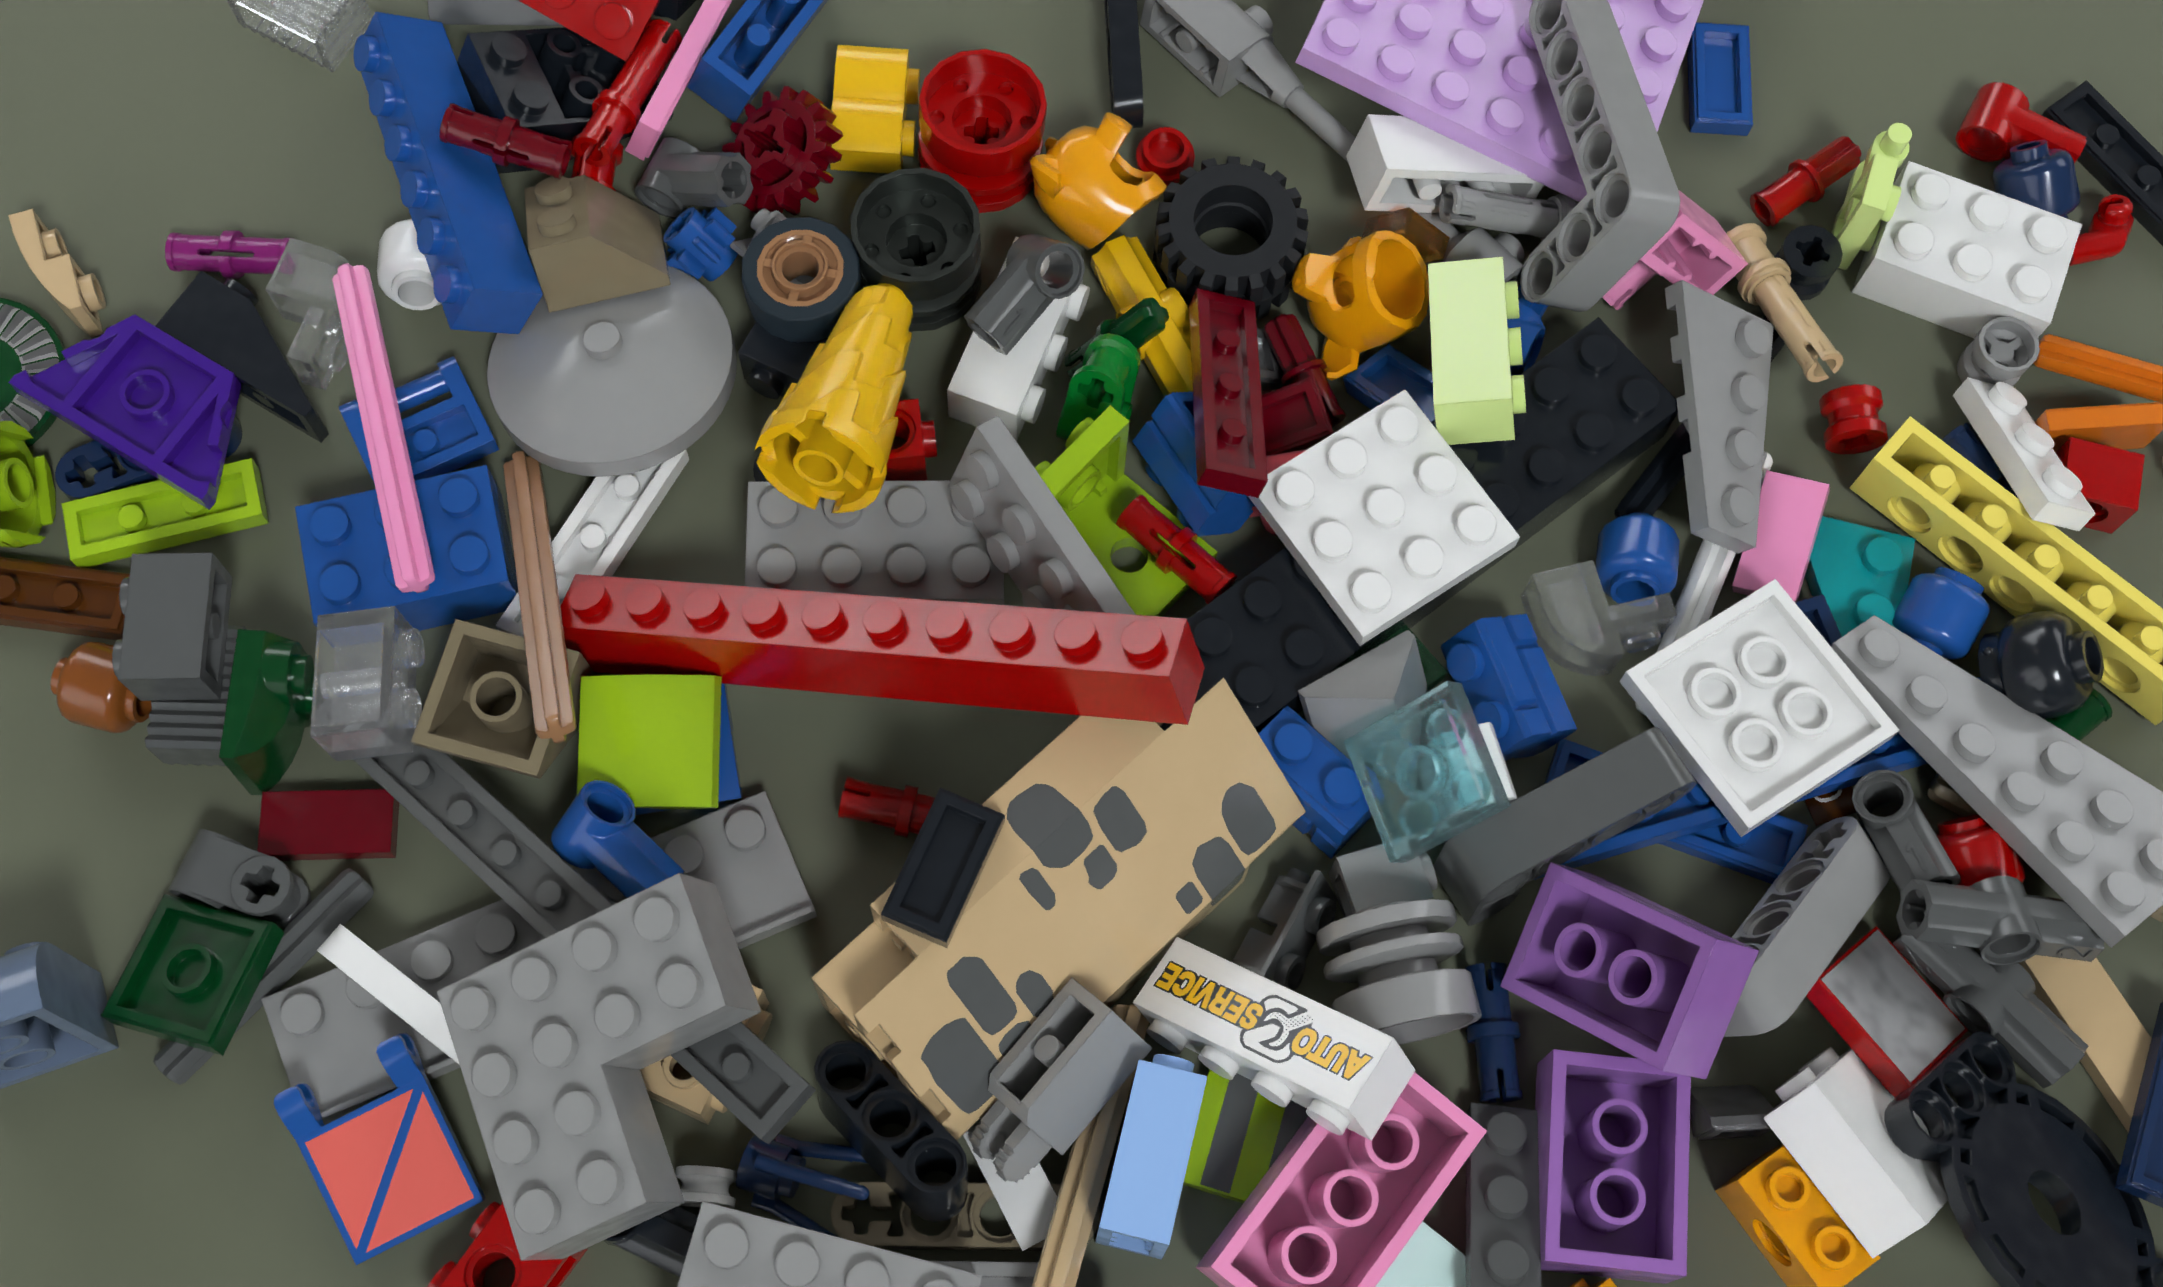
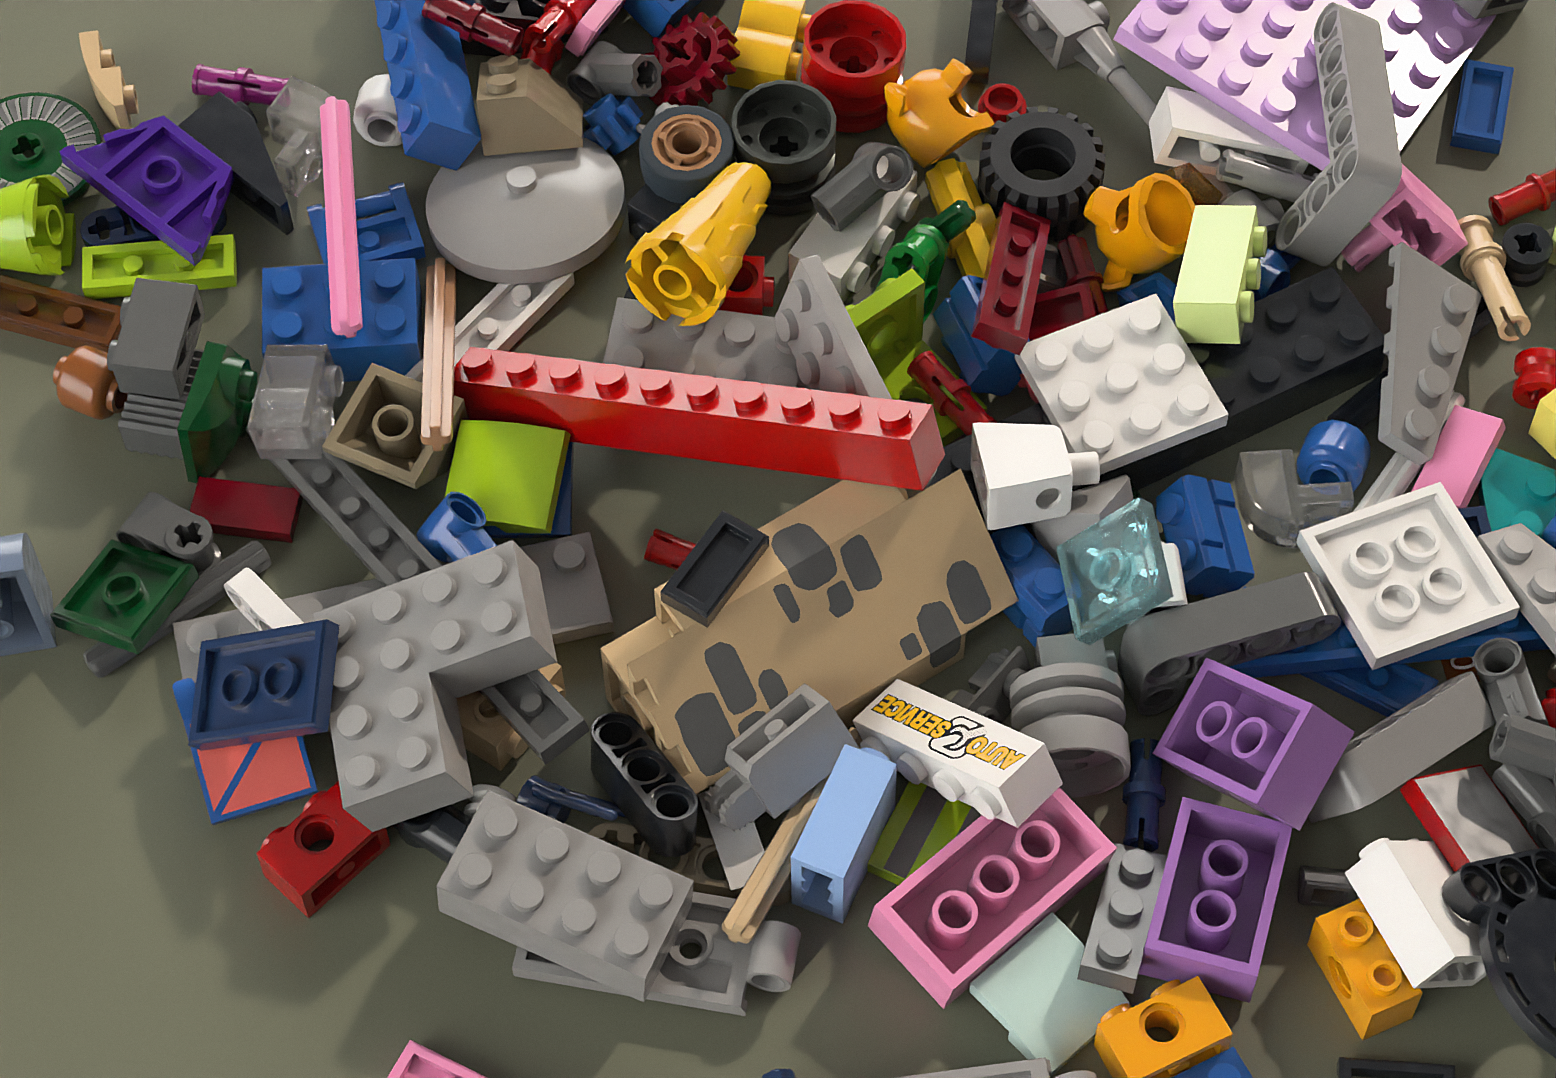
camera: 15 degrees right, 10 degrees down
(391, 1096) = (264, 685): none -> dark blue tile
(1295, 656) = (1026, 472): none -> white torso

